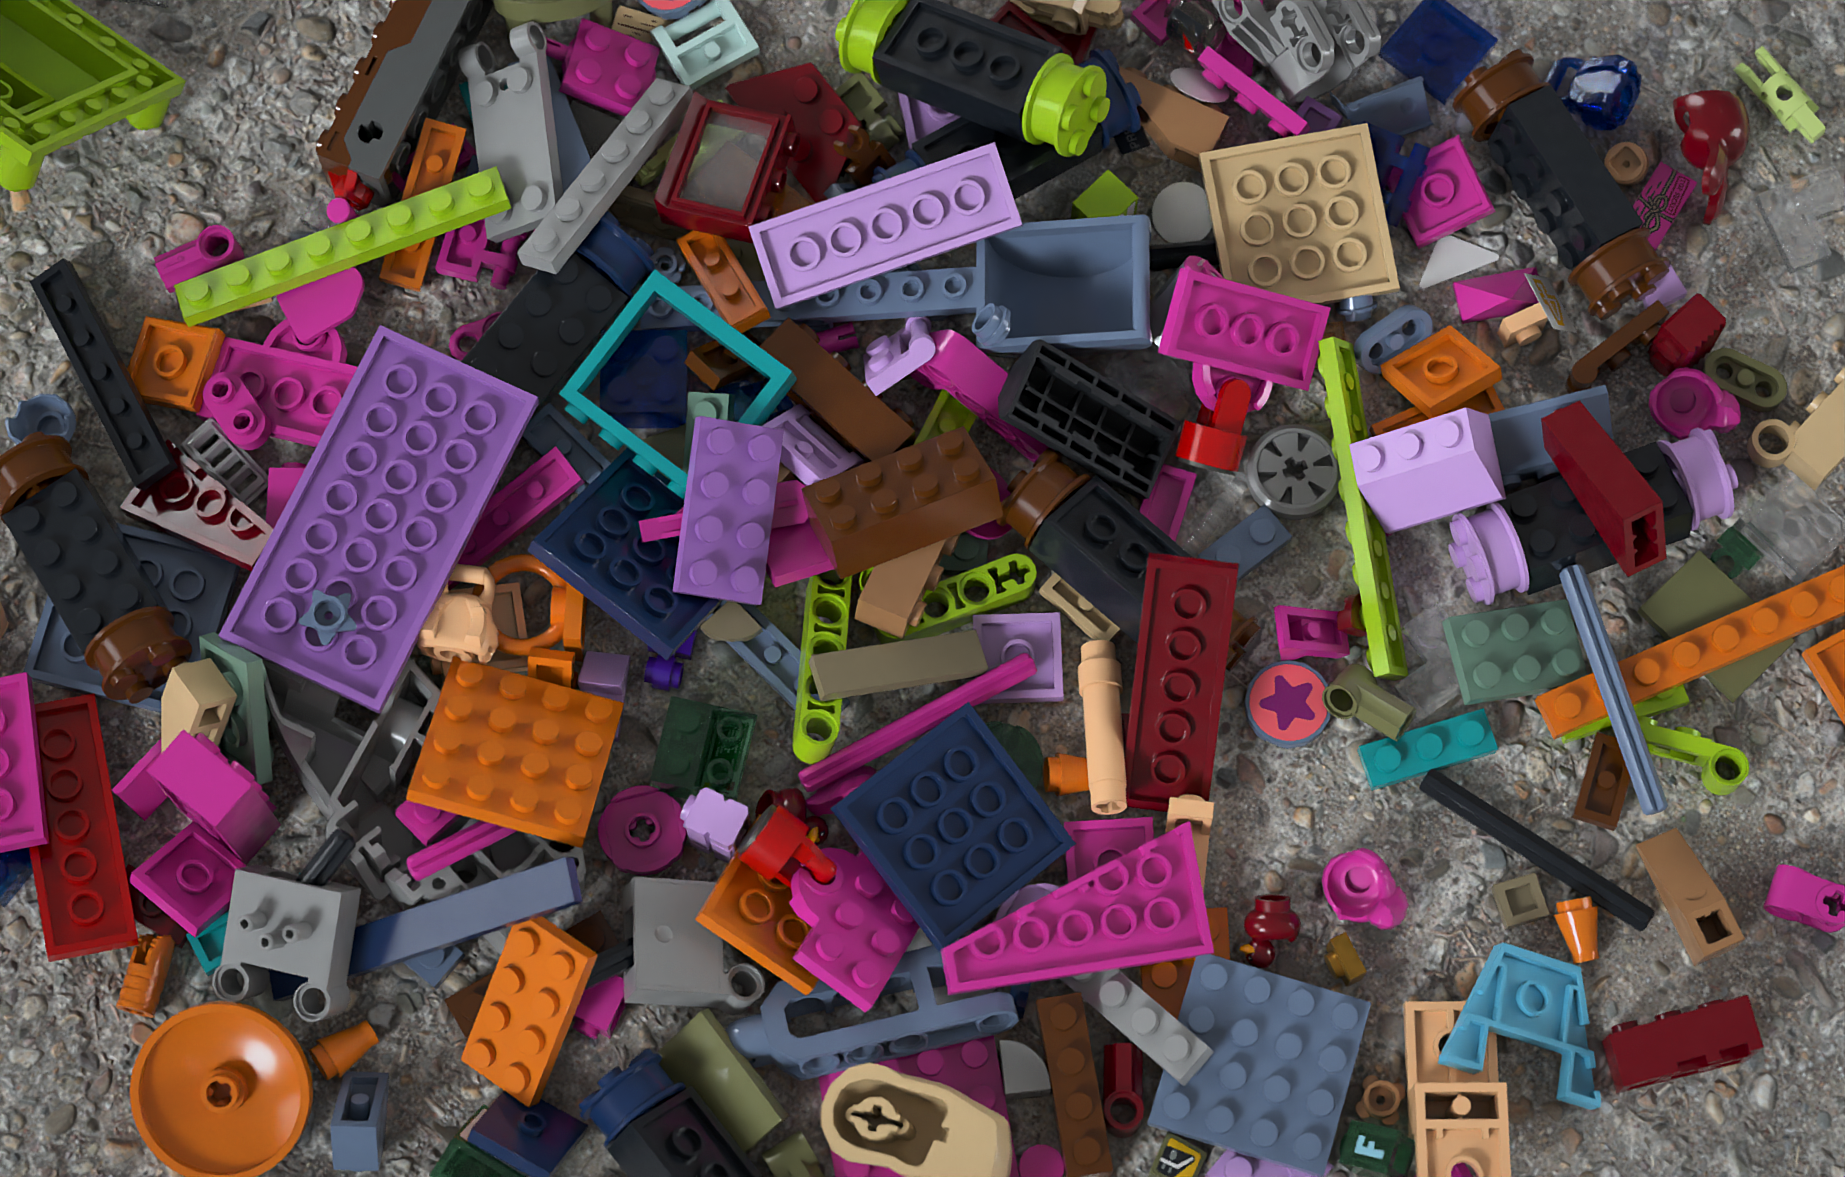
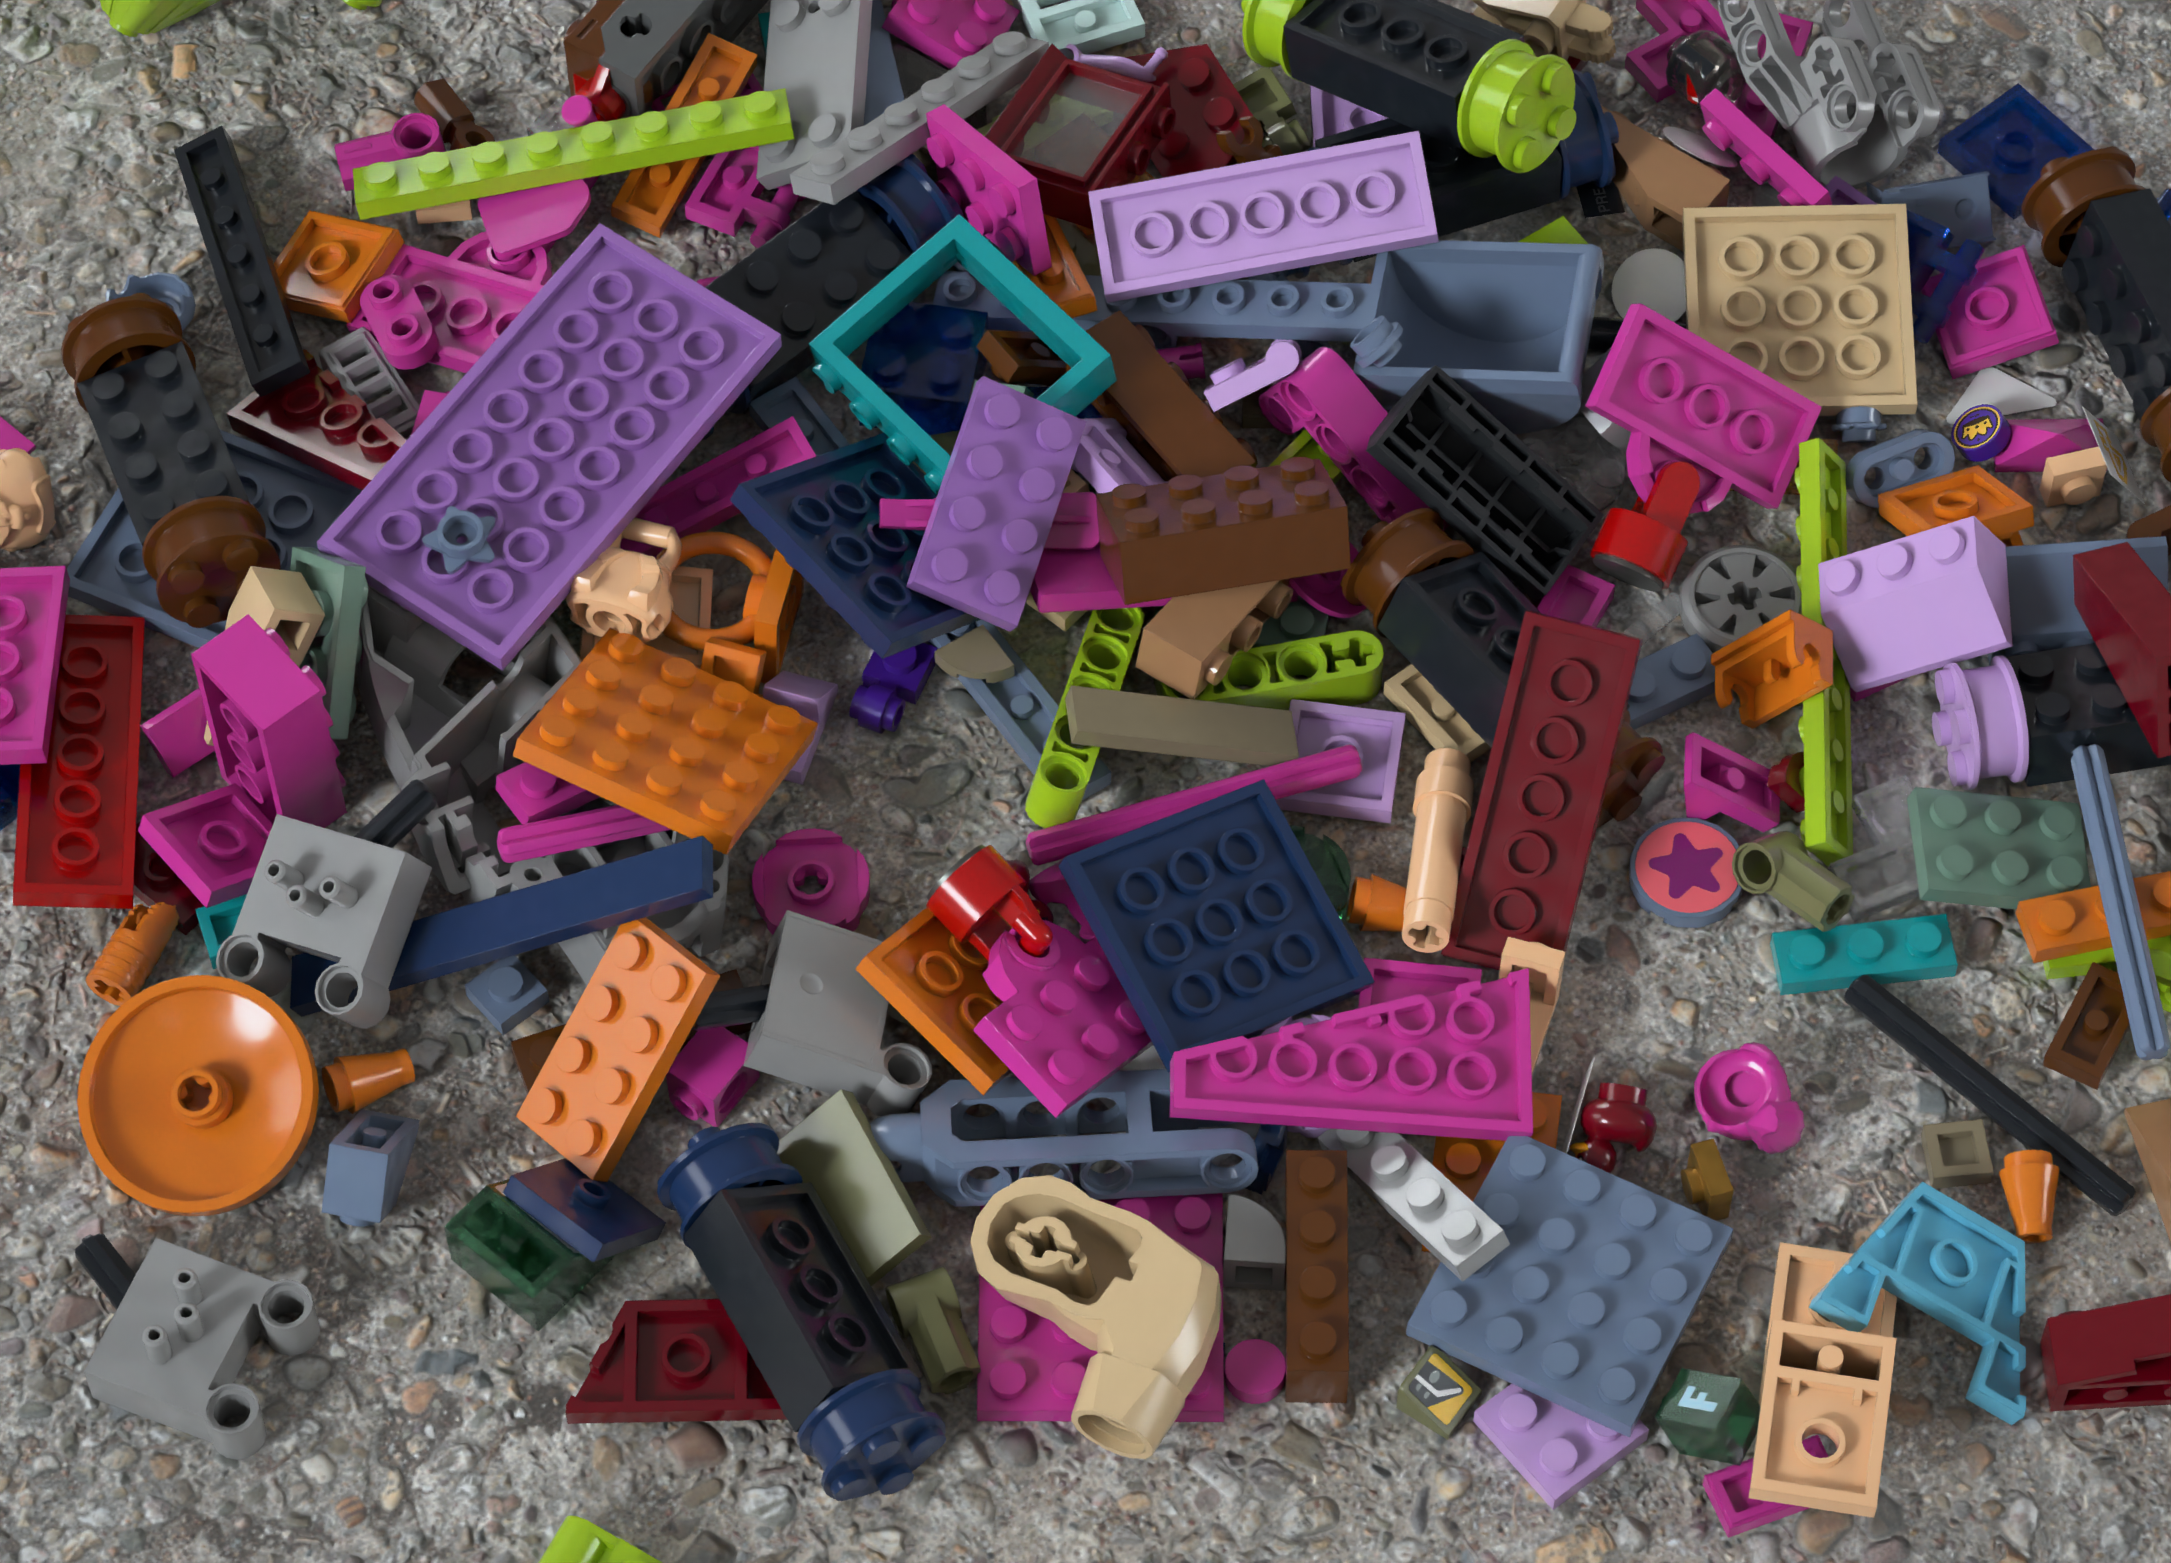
camera: 10 degrees right, 15 degrees down
(241, 219) = (451, 114): none -> reddish brown bar
(670, 234) = (990, 189): none -> dark pink plate
(702, 749) = (905, 798): clear green slope -> none
(715, 823) = (902, 873): lavender brick -> none
(718, 89) = (1122, 65): none -> lavender piece
(1122, 1086) = (1382, 1289): dark red piece -> none
(1239, 920) = (1577, 1108): none -> white sticker
(1329, 534) = (1774, 667): none -> orange hinge
(1390, 1092) = (1730, 1346): medium nougat plate -> none
(1448, 297) = (1981, 433): none -> dark purple tile

